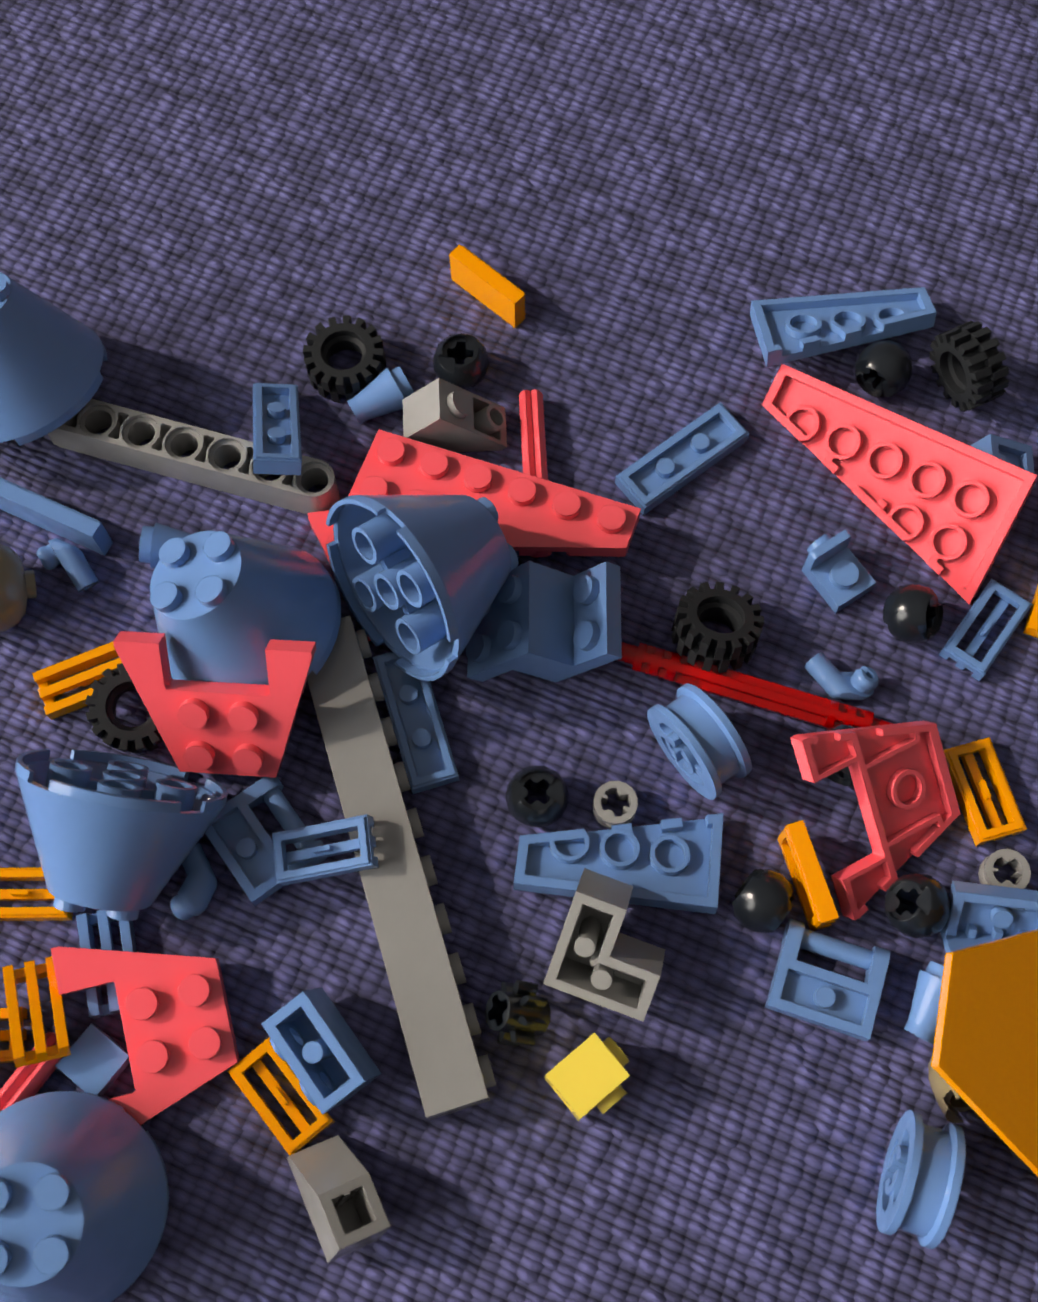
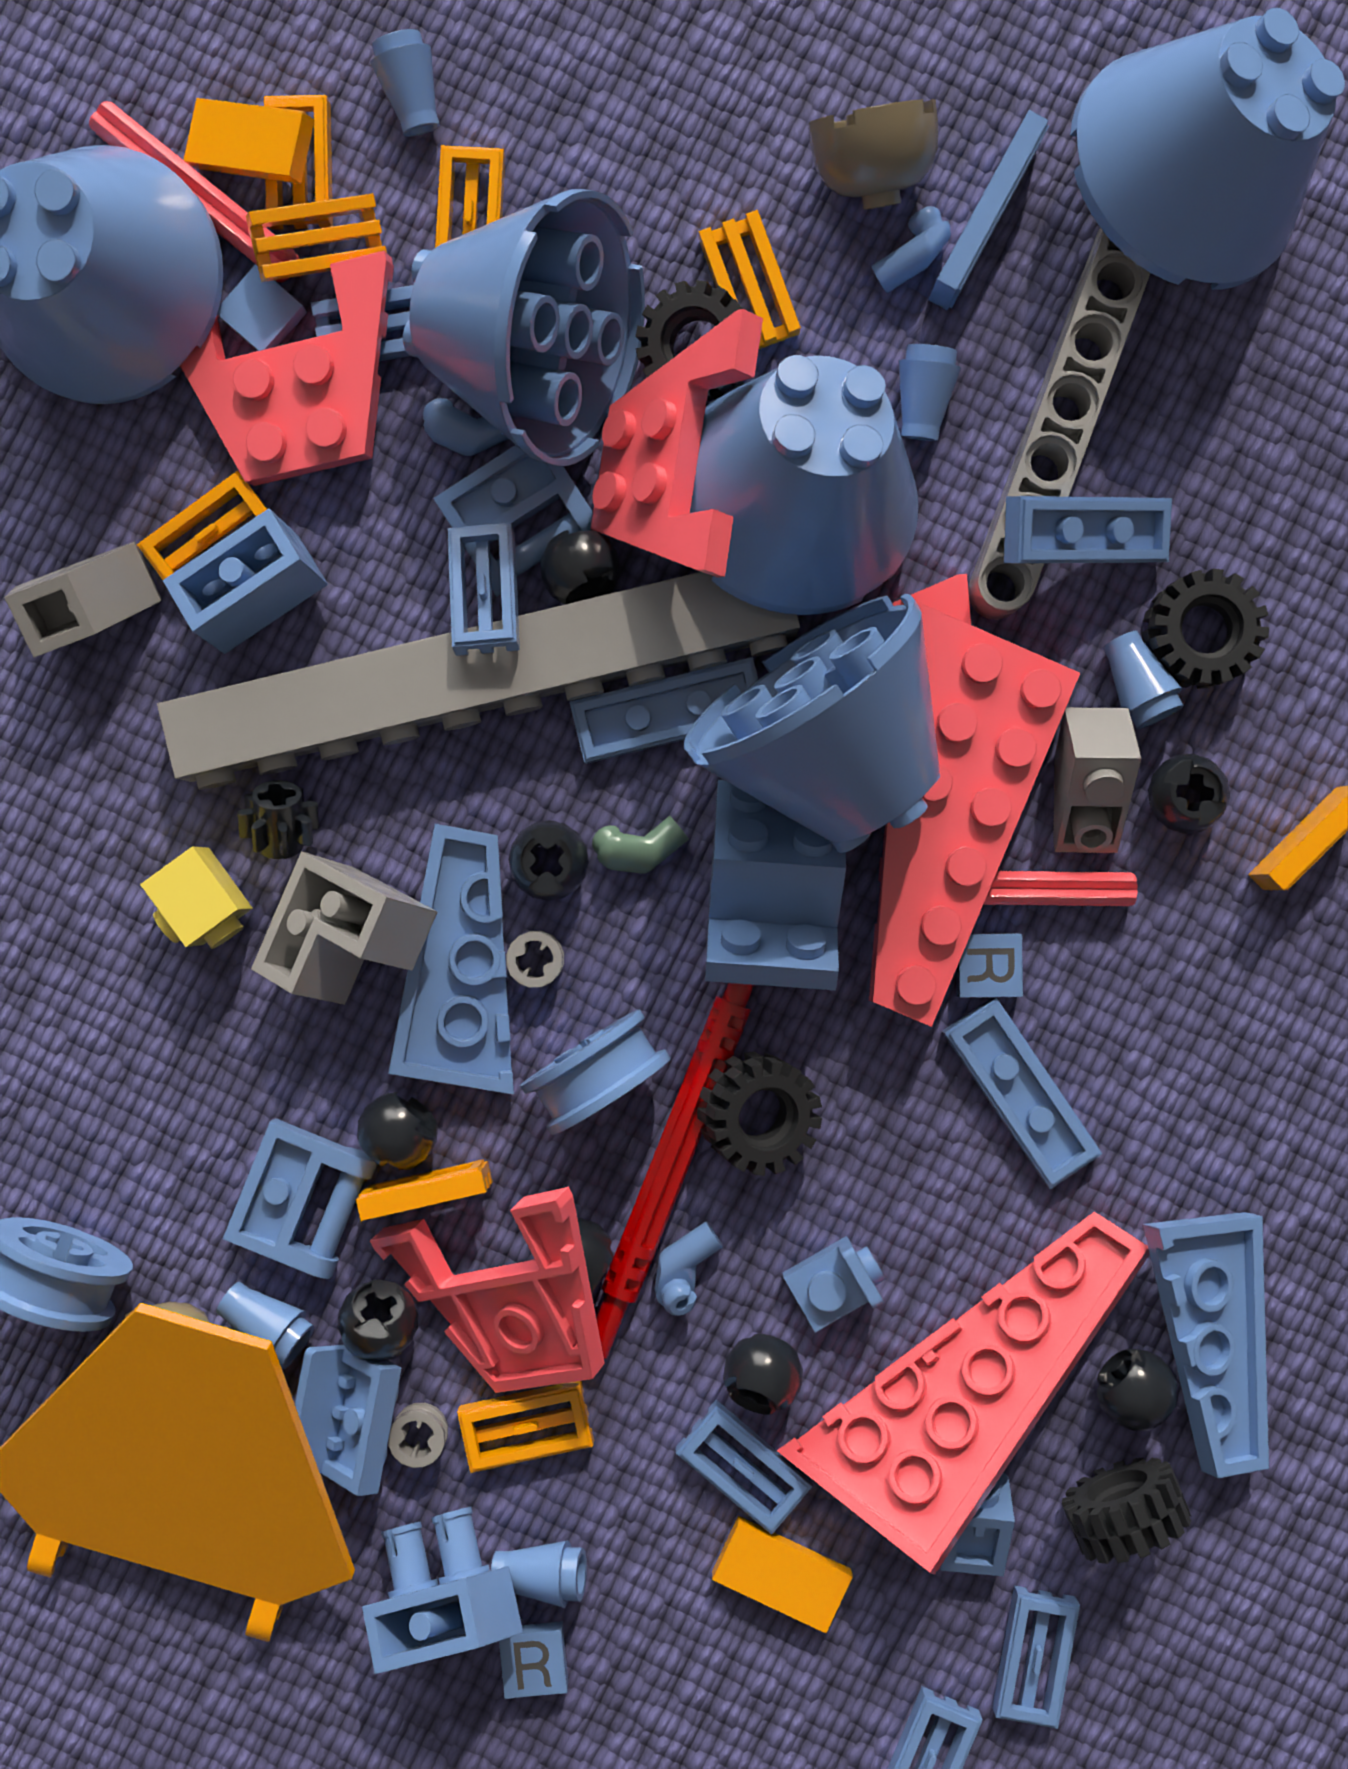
camera: 90 degrees right, 20 degrees up
(306, 784) = (579, 566): none -> black piece
(526, 732) = (635, 852): none -> sand green arm
(593, 477) = (991, 966): none -> medium blue tile

